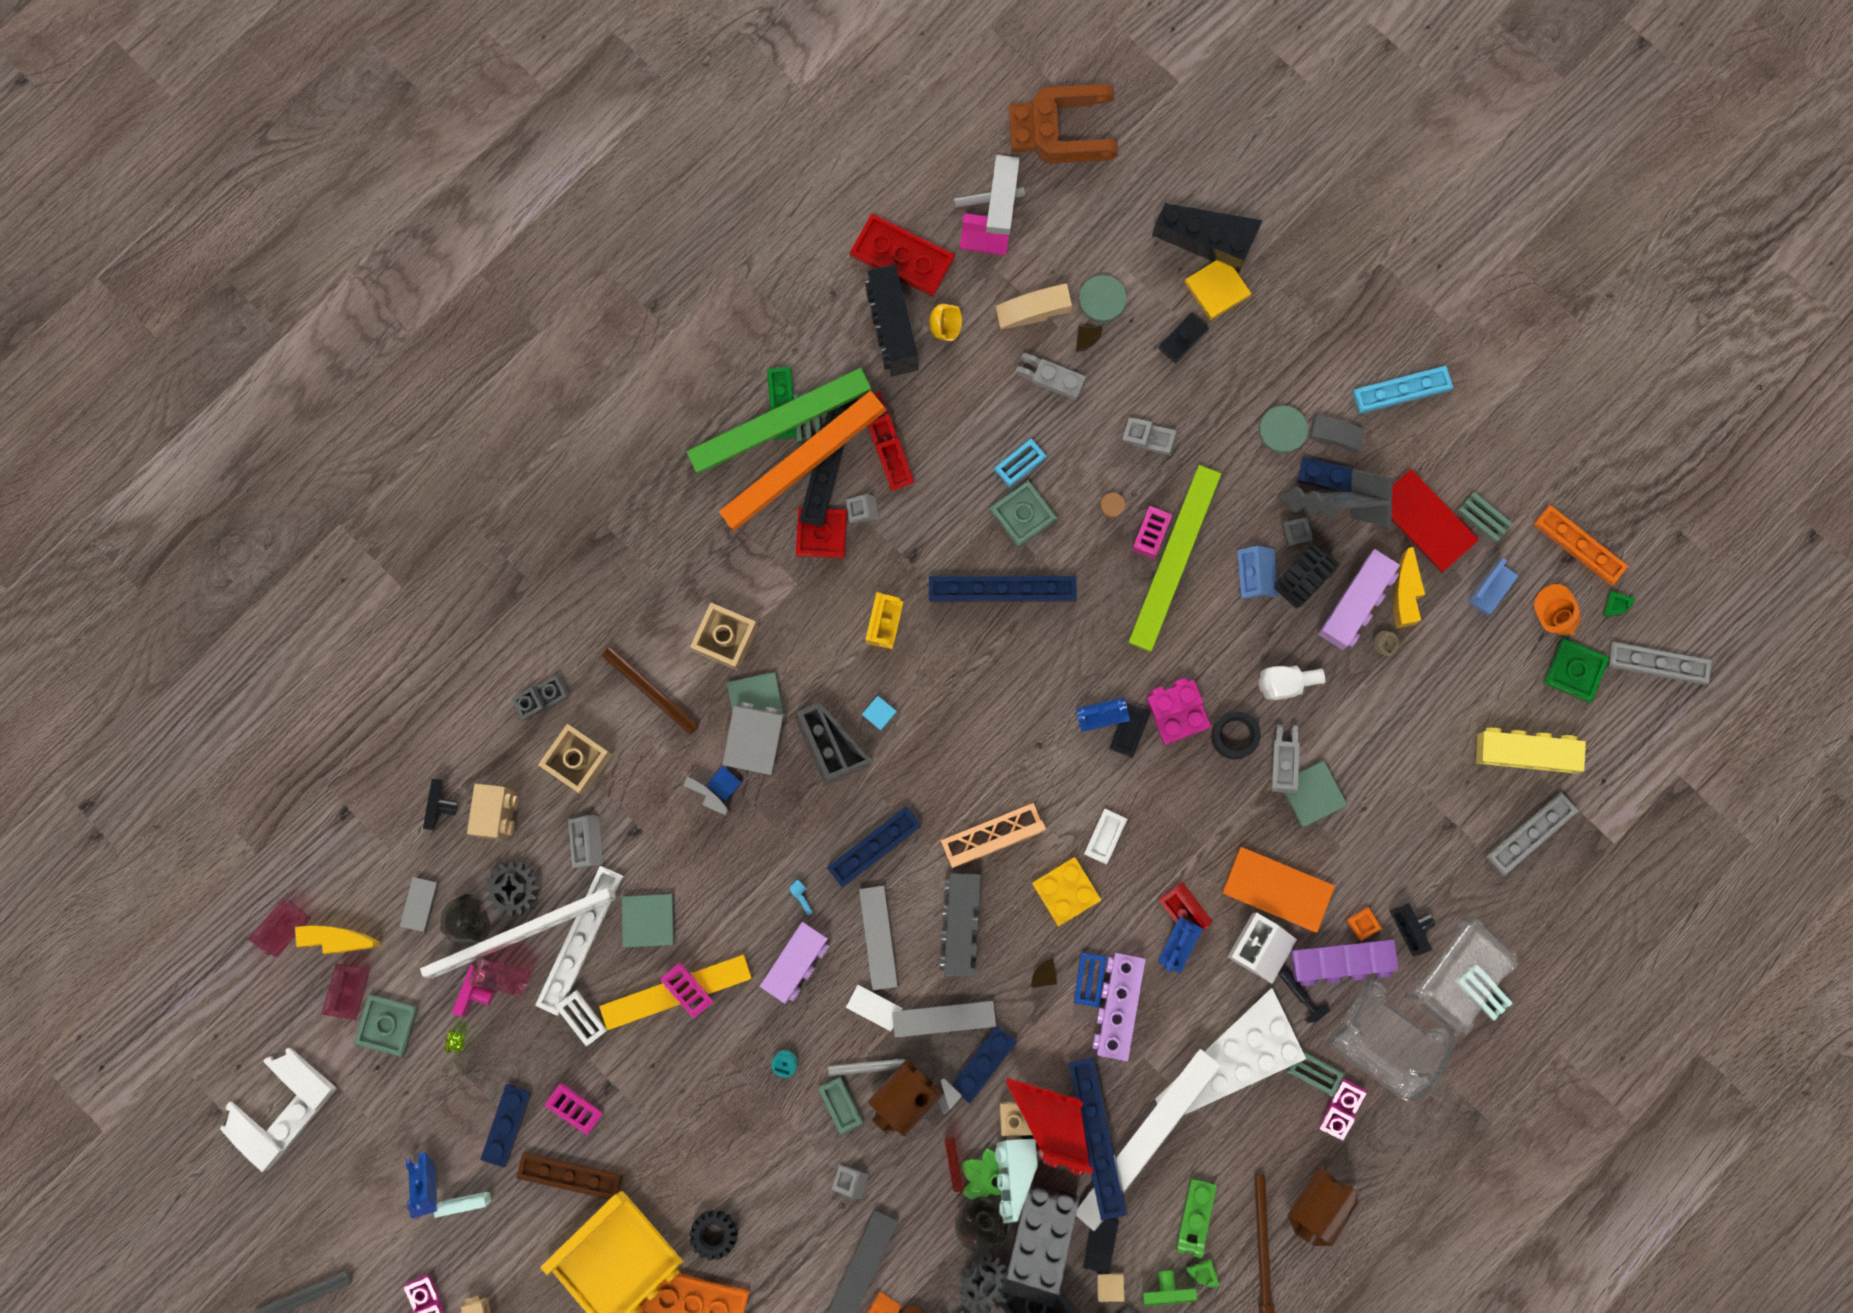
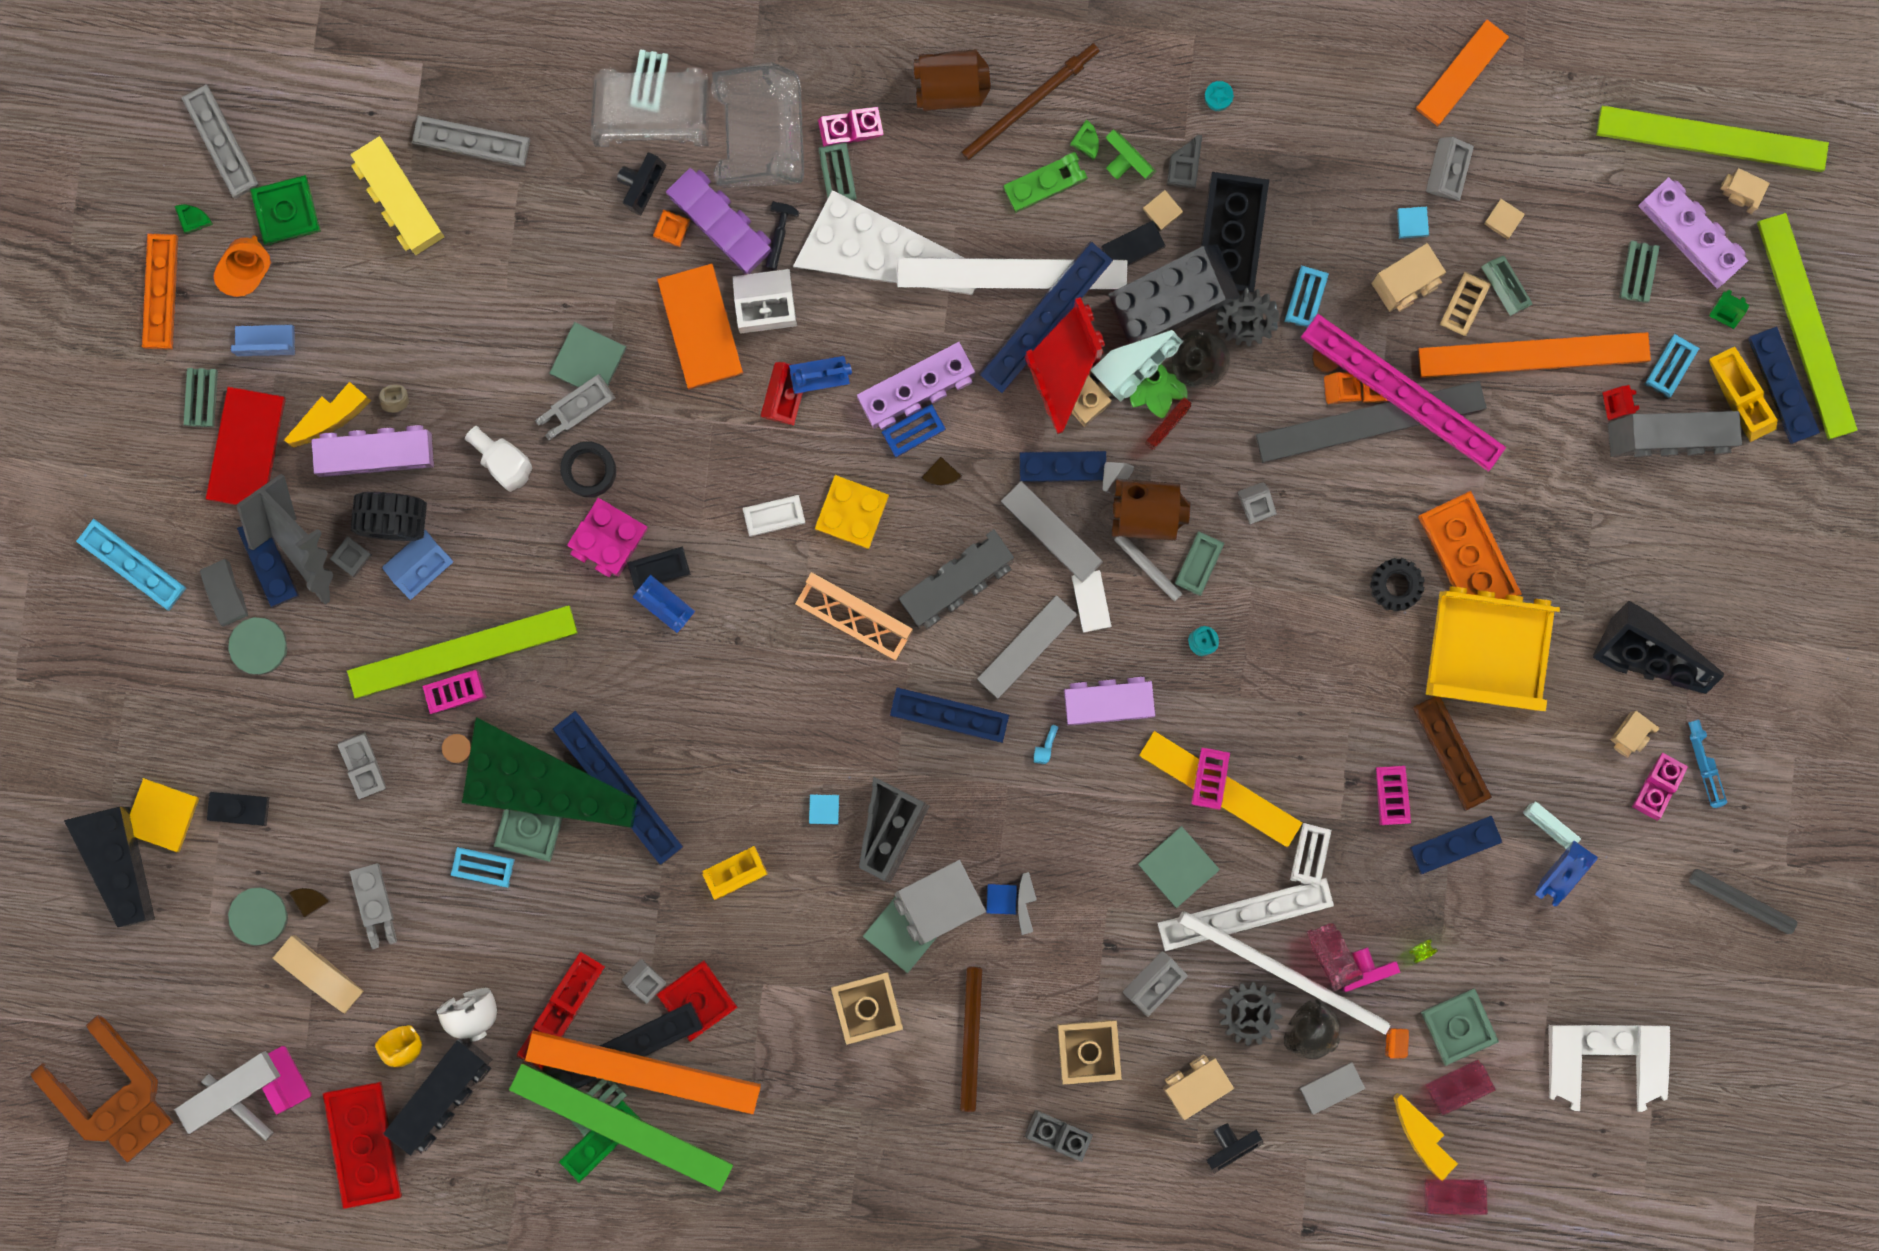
camera: 130 degrees left, 5 degrees up
(410, 972) = (1397, 1043): none -> orange slope
(929, 379) = (469, 1015): none -> white cylinder
(1052, 535) = (525, 779): none -> dark green wing

